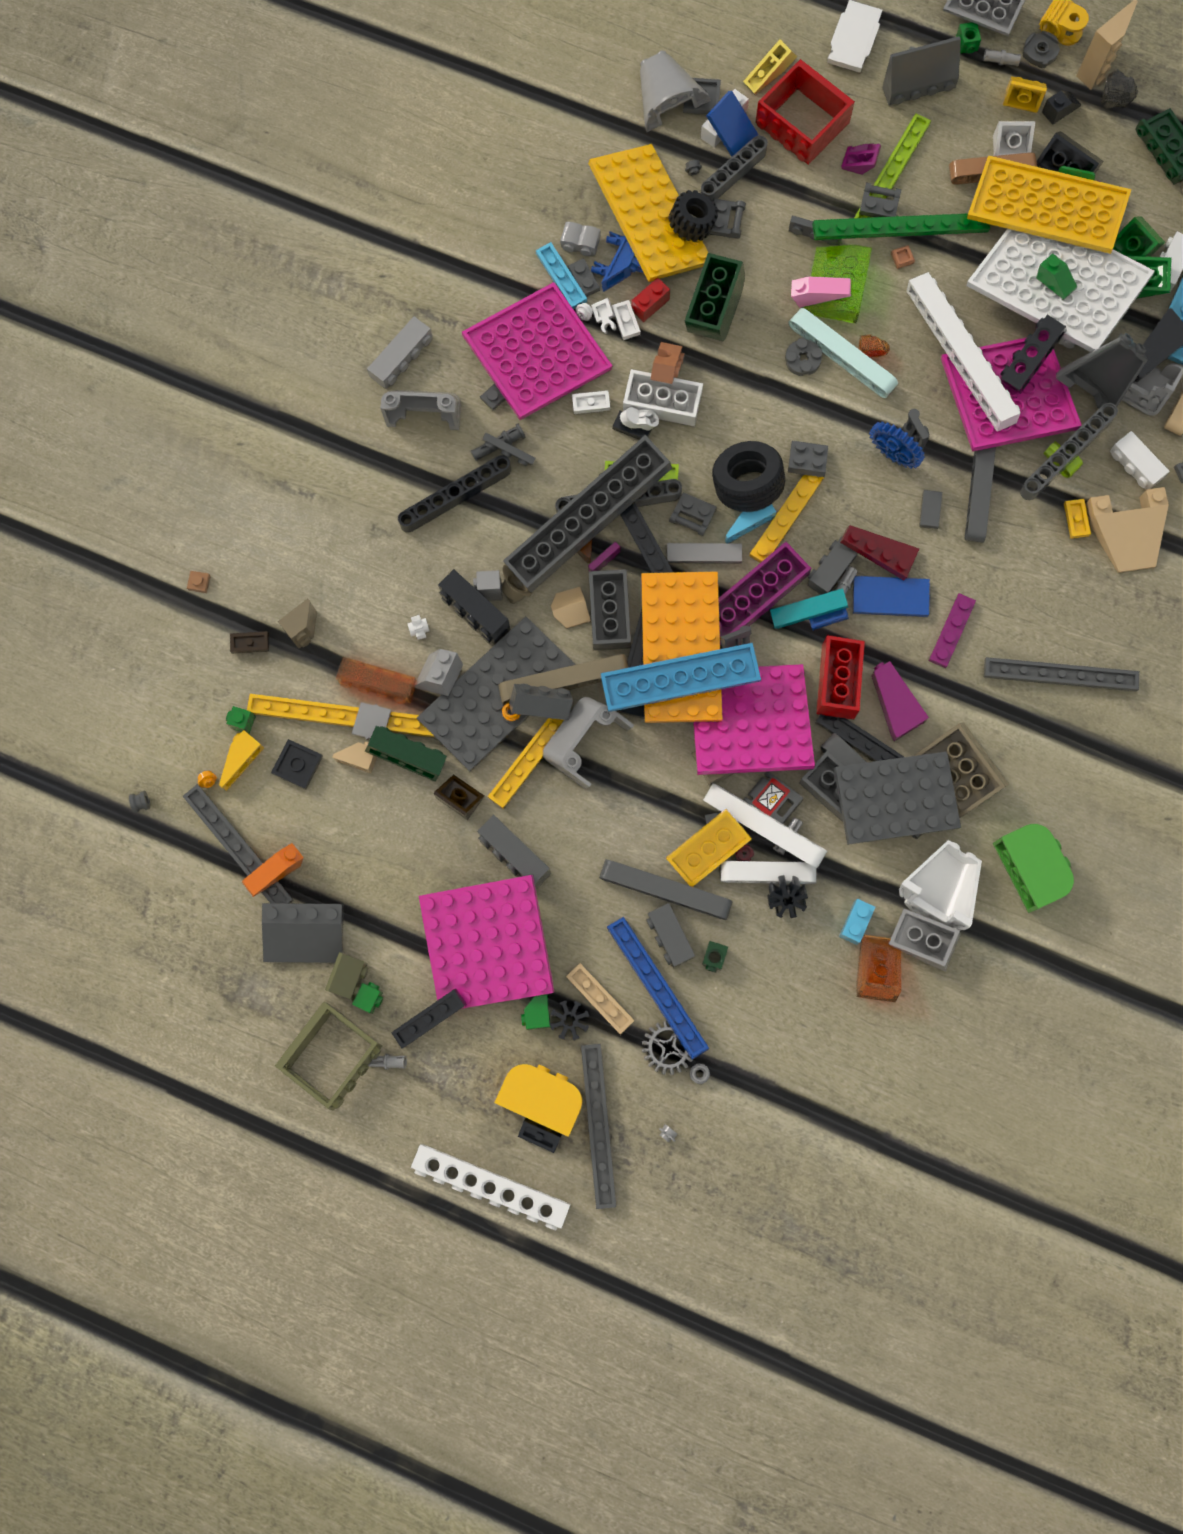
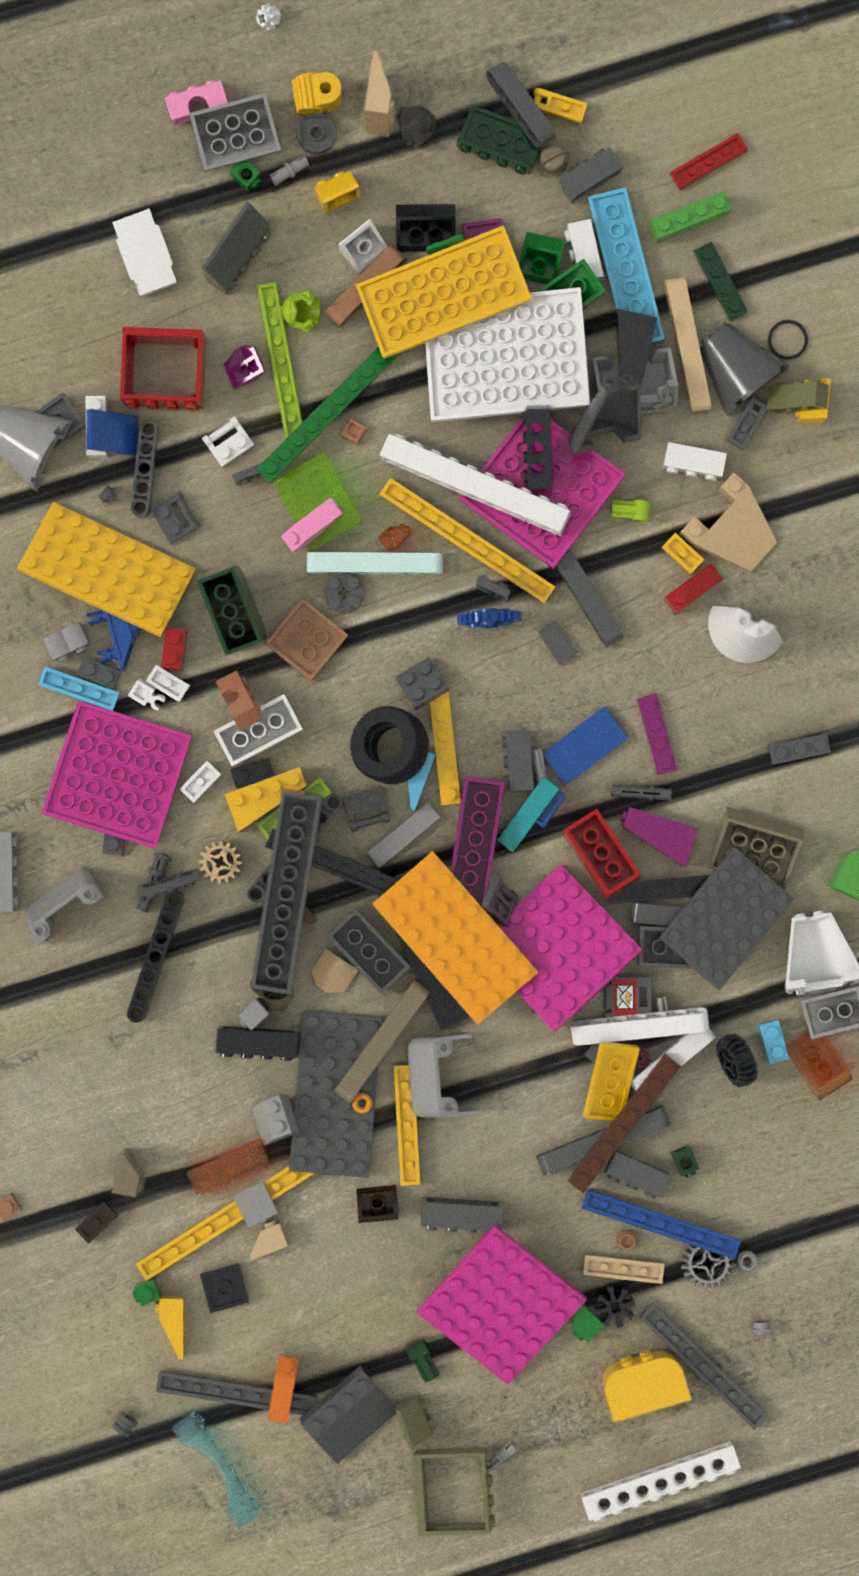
camera: 50 degrees left, 10 degrees up
(167, 930) = (193, 1434): none -> clear light blue arch
(206, 779) = (162, 1361): light orange plate -> none
(368, 997) = (444, 1421): green brick -> none
(393, 934) = (420, 1356): none -> dark green piece
(406, 753) = (307, 1207): dark green brick -> none
(418, 627) = (224, 1094): white gear -> none
(428, 1018) = (505, 1398): black plate -> none
(539, 1135) = (666, 1414): black plate -> none
(540, 701) = (381, 1078): dark grey brick -> none
(562, 460) = (216, 870): none -> tan gear
(584, 311) = (126, 705): white plate -> none
(604, 558) = (326, 910): magenta tile -> none
(614, 440) = (262, 797): none -> yellow wedge
(620, 980) = (626, 1240): none -> medium nougat plate
(637, 418) = (248, 771): white piece -> none
(680, 677) = (478, 968): dark azure plate -> none
(692, 886) = (623, 1123): none -> reddish brown plate
(697, 205) = (149, 532): black tyre -> none
(750, 366) = (306, 639): none -> medium nougat plate
(770, 67) = (96, 344): light yellow slope -> none
(787, 896) = (703, 1068): black gear -> none
(807, 203) = (232, 447): none -> white plate
(819, 911) = (736, 1060): none -> black gear
(876, 206) = (298, 403): dark grey plate -> none
(883, 551) = (552, 715): dark red wing -> none
(906, 661) = (665, 794): none -> dark grey pin
(923, 389) = (467, 540): none -> yellow plate
(935, 148) = (302, 310): none -> lime helmet
(1053, 726) = (799, 749): none -> dark grey plate
(1056, 276) = (505, 361): green slope -> none
(1060, 106) = (377, 176): black slope -> none
(1061, 674) = (772, 700): dark grey plate -> none
(1063, 548) = (692, 588): none -> red slope
(1073, 444) = (636, 496): dark grey beam -> none
(1080, 606) = (740, 637): none -> white cone

